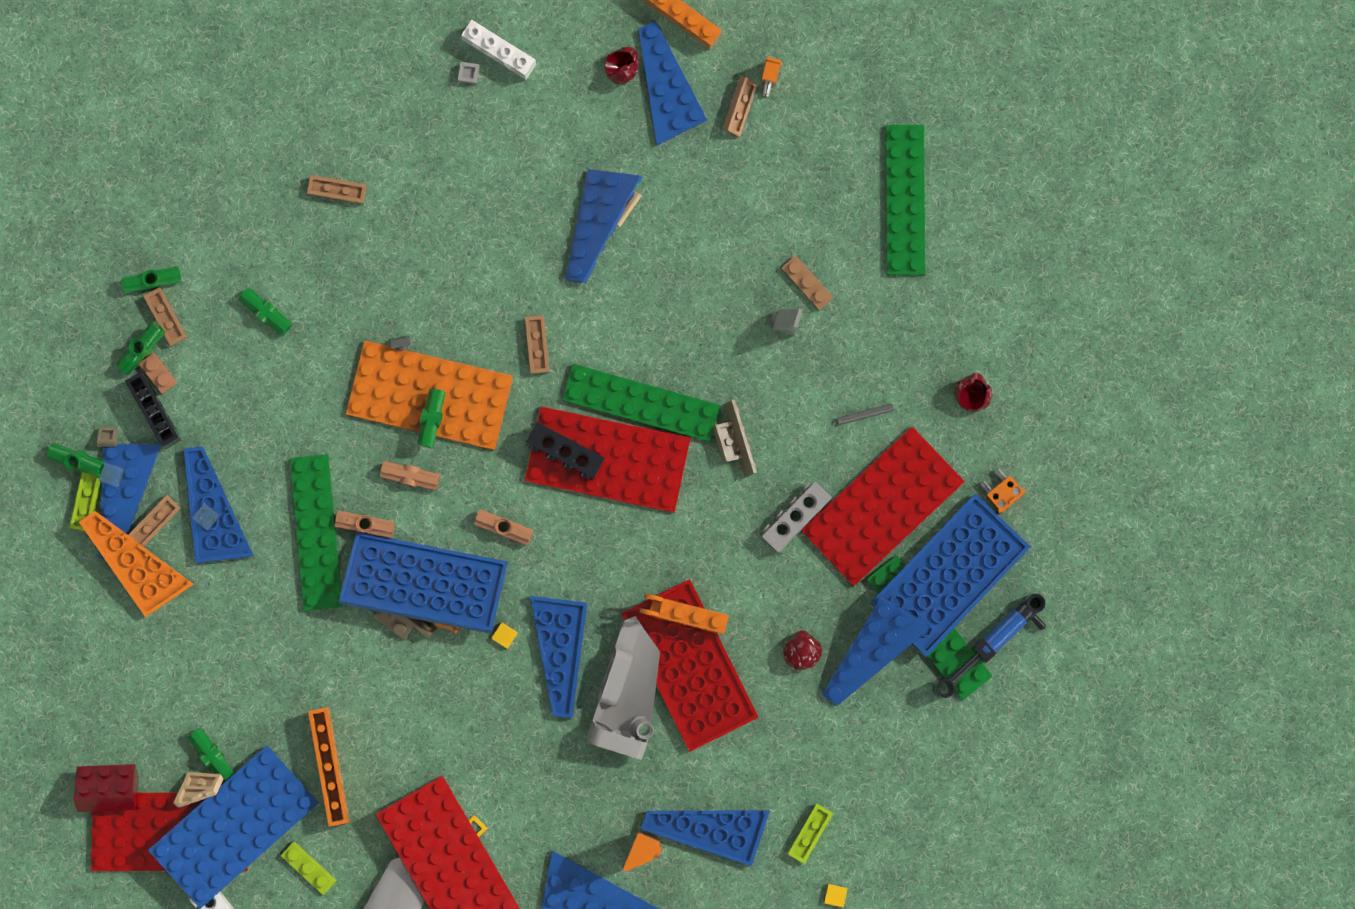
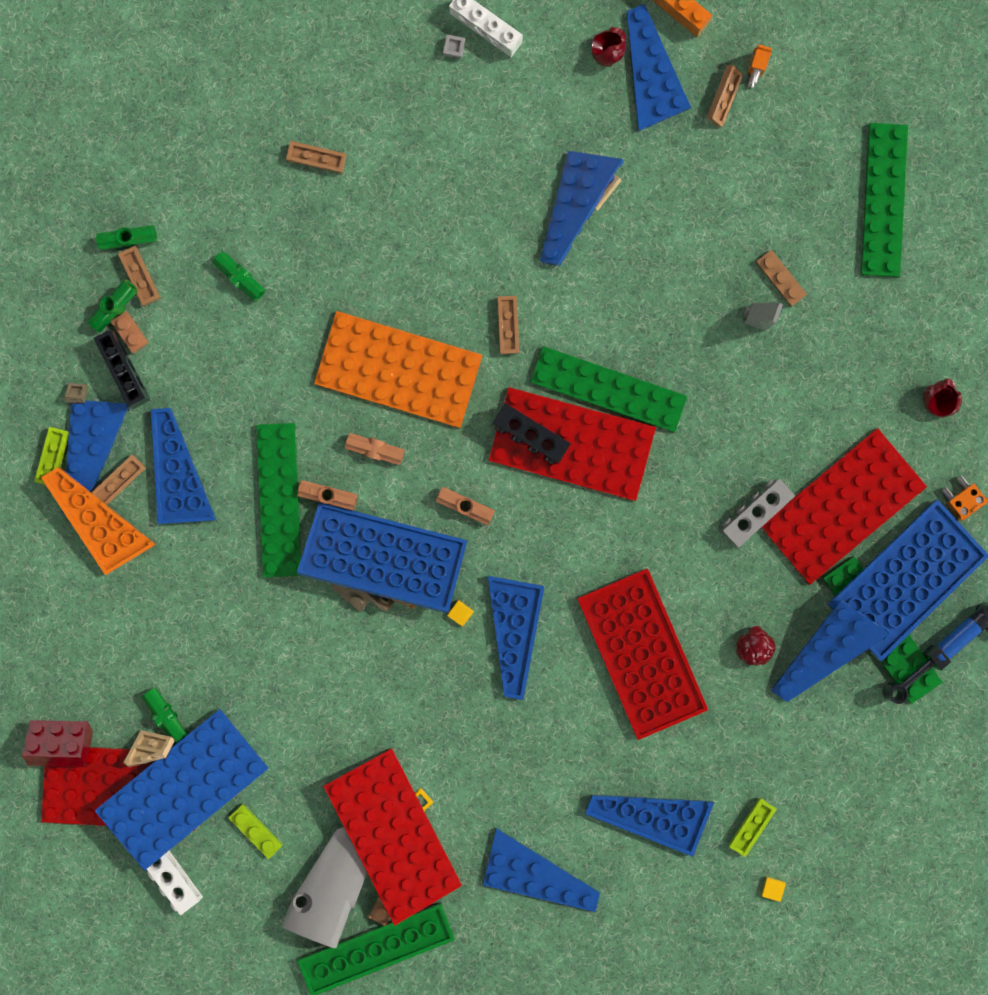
camera: 10 degrees right, 5 degrees up
(67, 457) = (43, 414): green piece -> none
(111, 475) = (77, 431): clear light blue plate -> none
(206, 516) = (169, 479): clear light blue plate -> none
(329, 766) = (279, 735): orange brick -> none
(400, 343) = (372, 316): dark grey plate -> none
(431, 418) = (399, 392): green piece -> none
(627, 693) = (579, 681): light grey panel -> none
(642, 851) = (587, 843): orange slope -> none
(686, 614) = (644, 605): orange hinge -> none
(733, 441) = (699, 433): dark tan bracket -> none
(865, 414) = (831, 413): dark grey bar -> none

